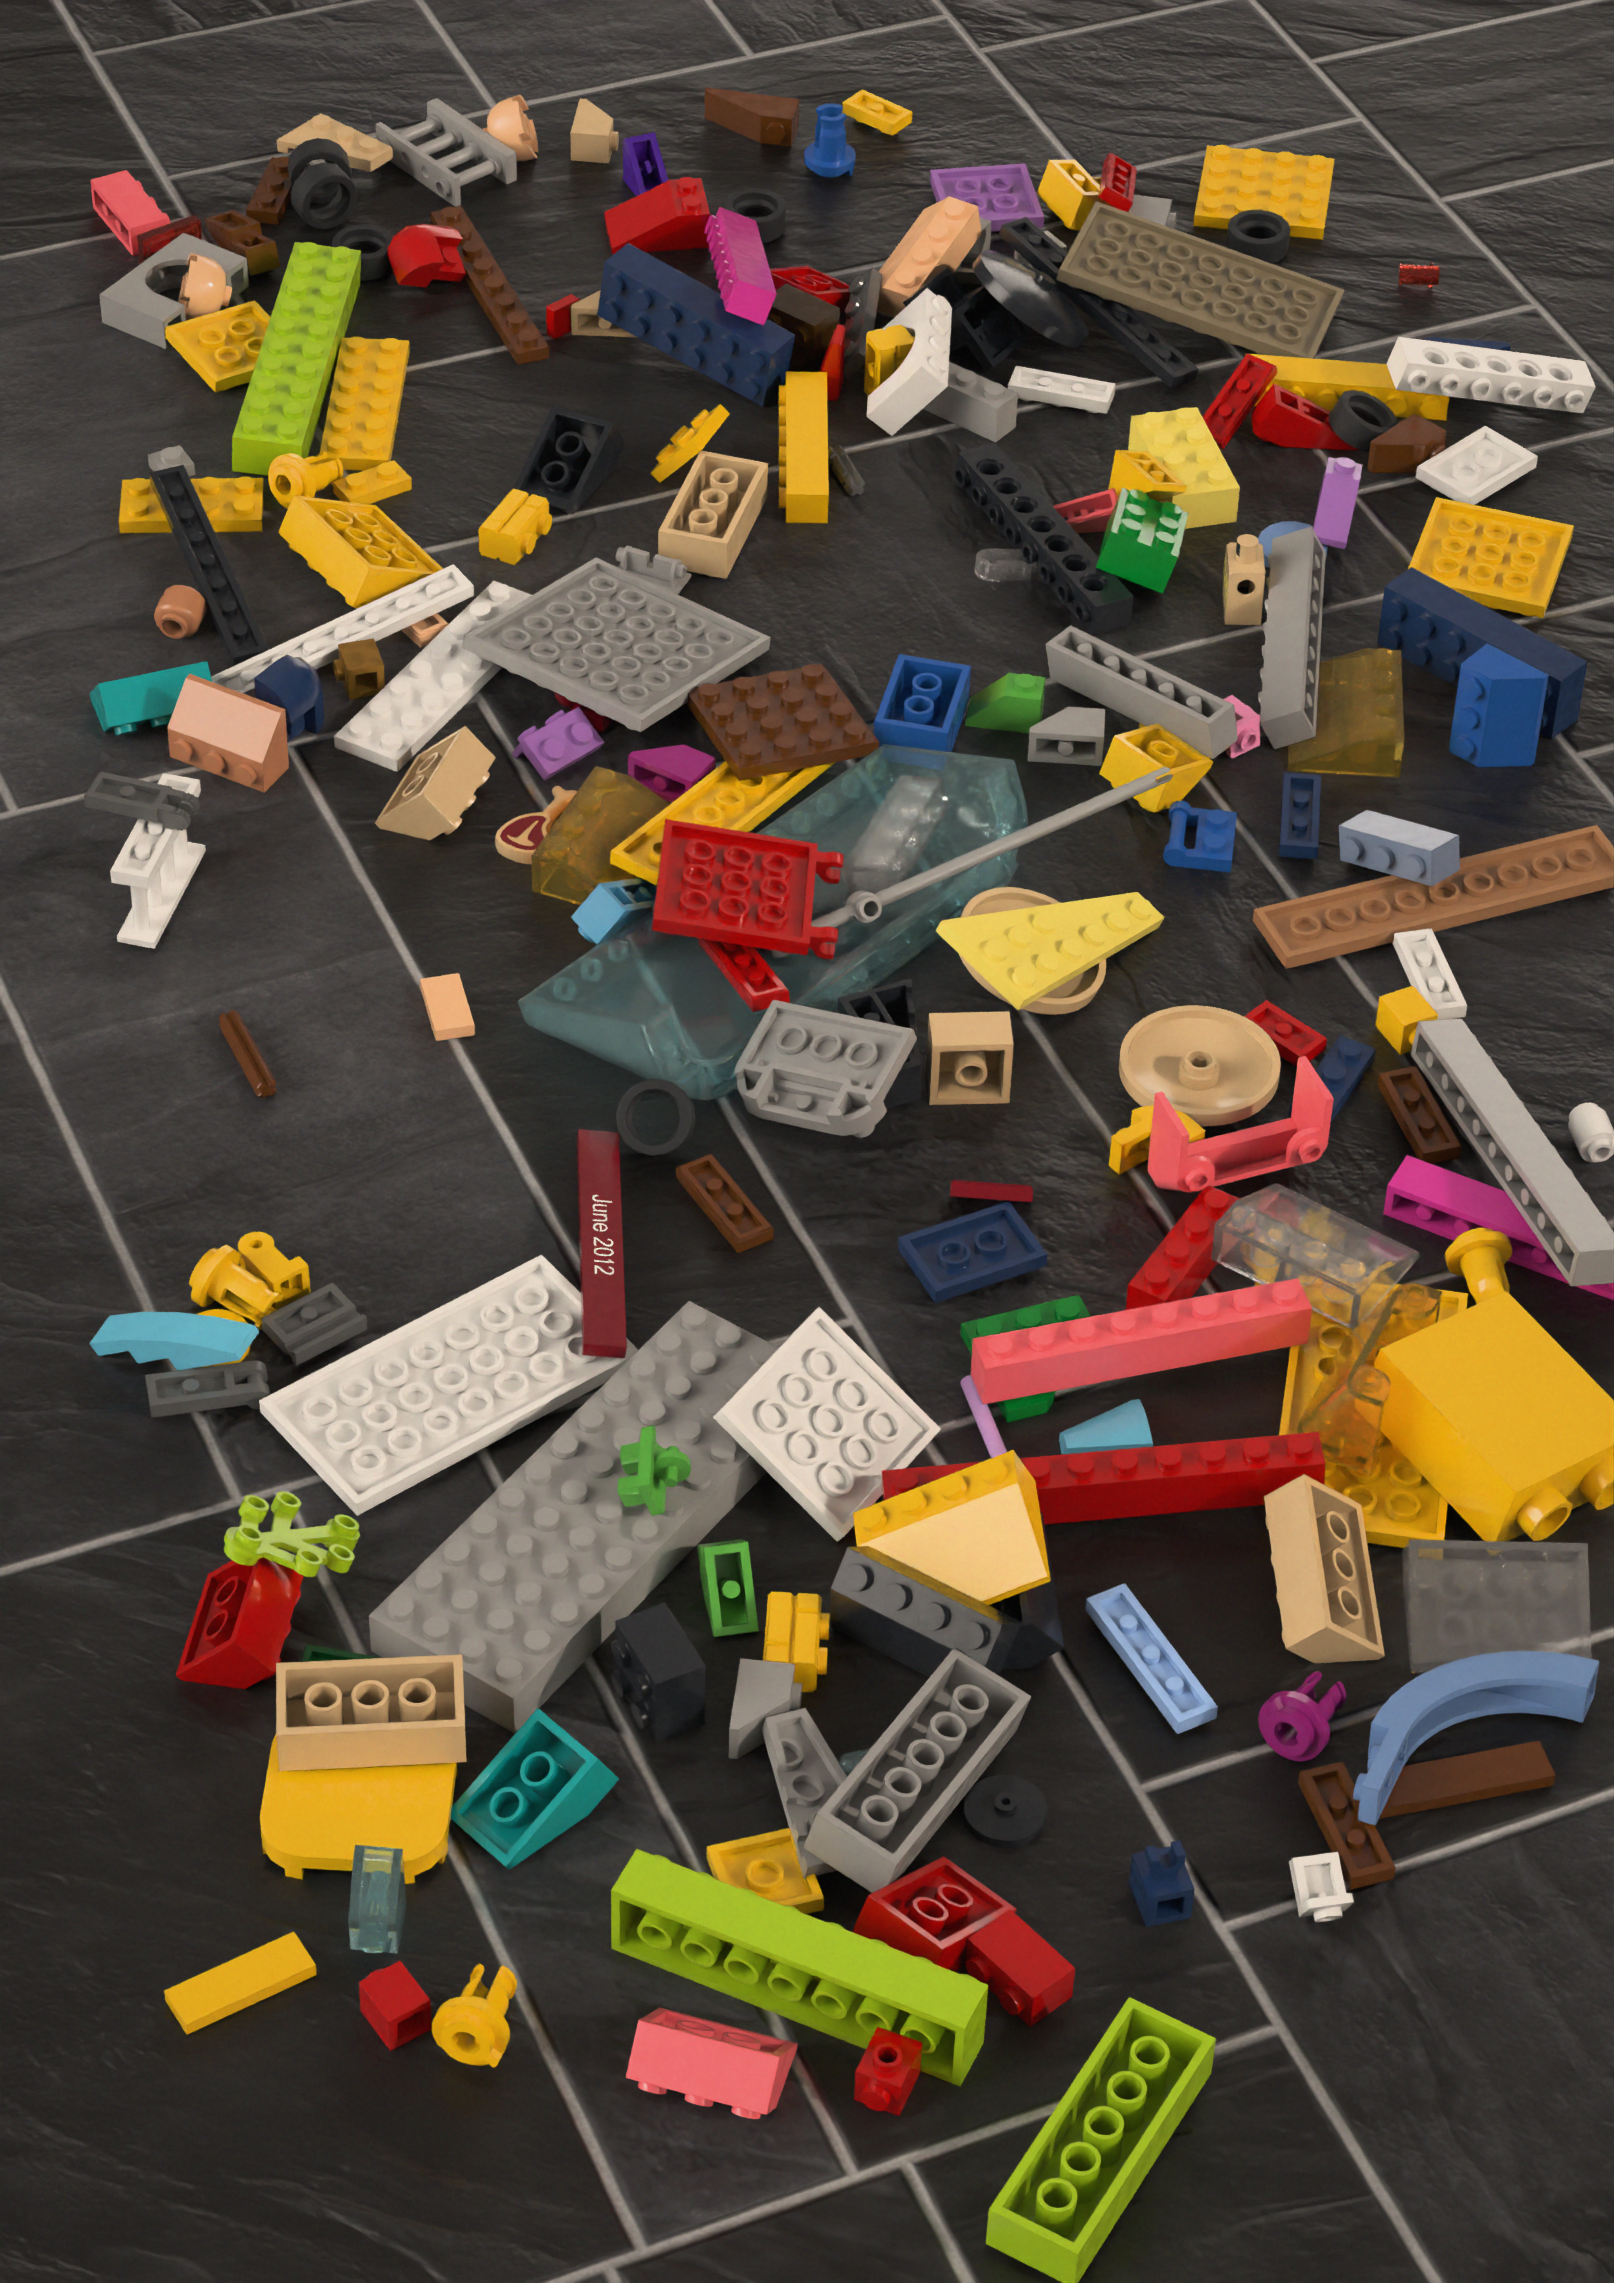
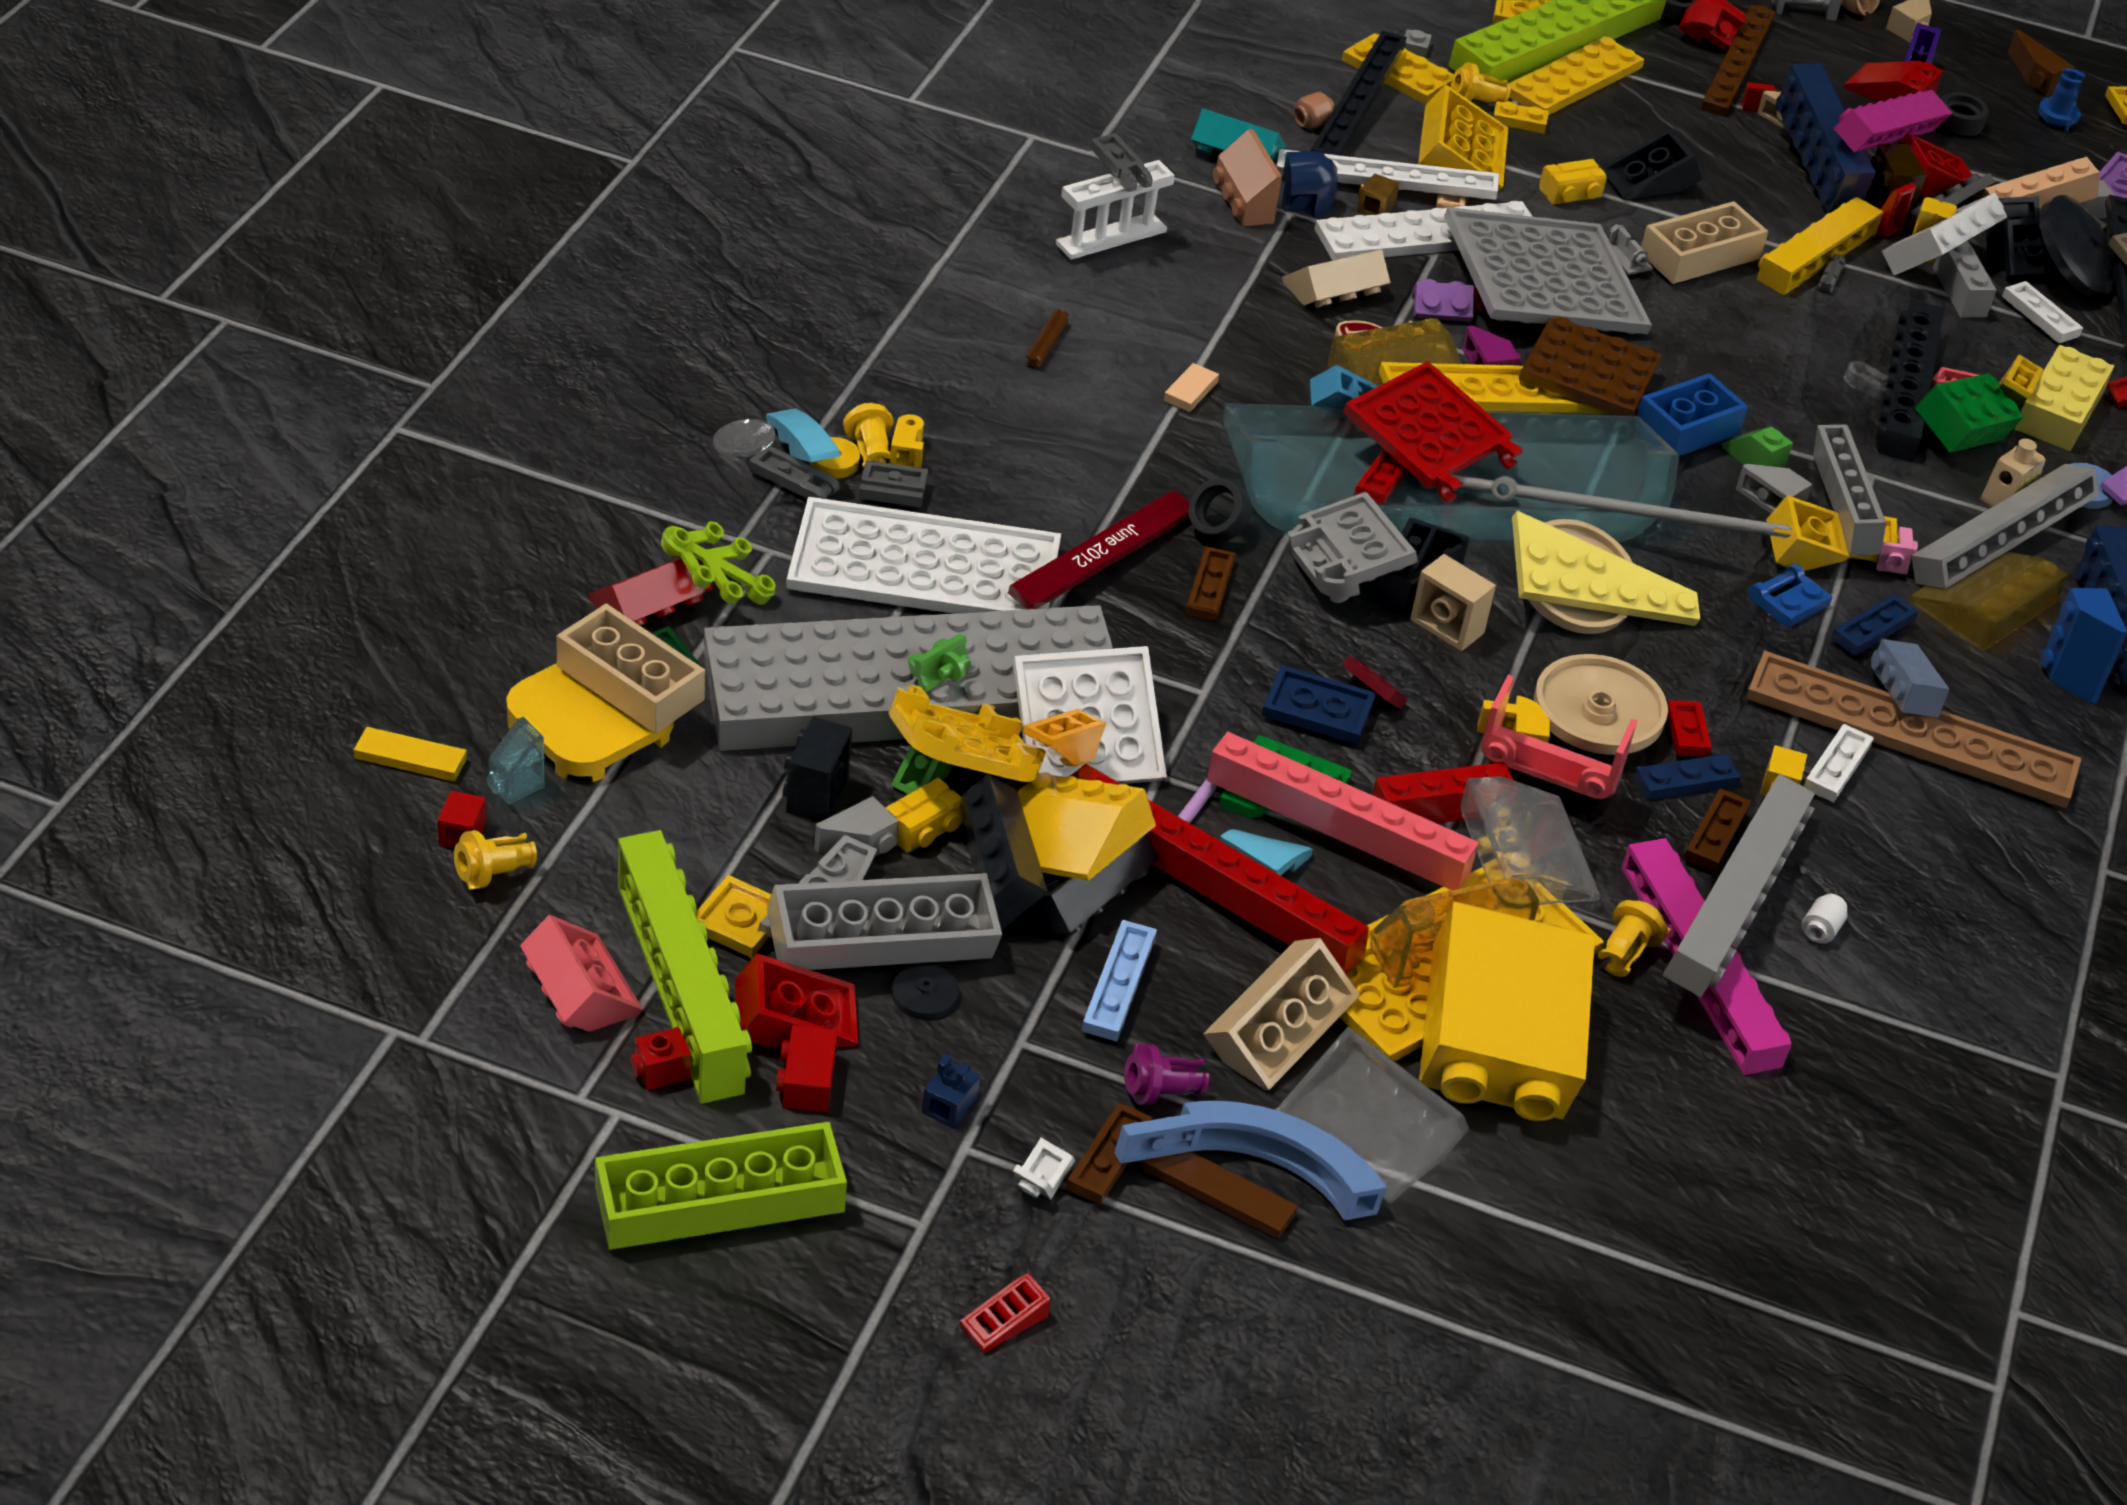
camera: 40 degrees right, 0 degrees up
(111, 1385) = (744, 437): none -> clear dish
(532, 1791) = (680, 778): teal slope -> none
(688, 442) = (1744, 197): yellow plate -> none
(768, 1529) = (965, 739): none -> yellow tile
(861, 1451) = (1069, 735): none -> light orange slope
(896, 834) = (1580, 465): clear brick -> none
(1455, 2012) = (1025, 1296): none -> red slope

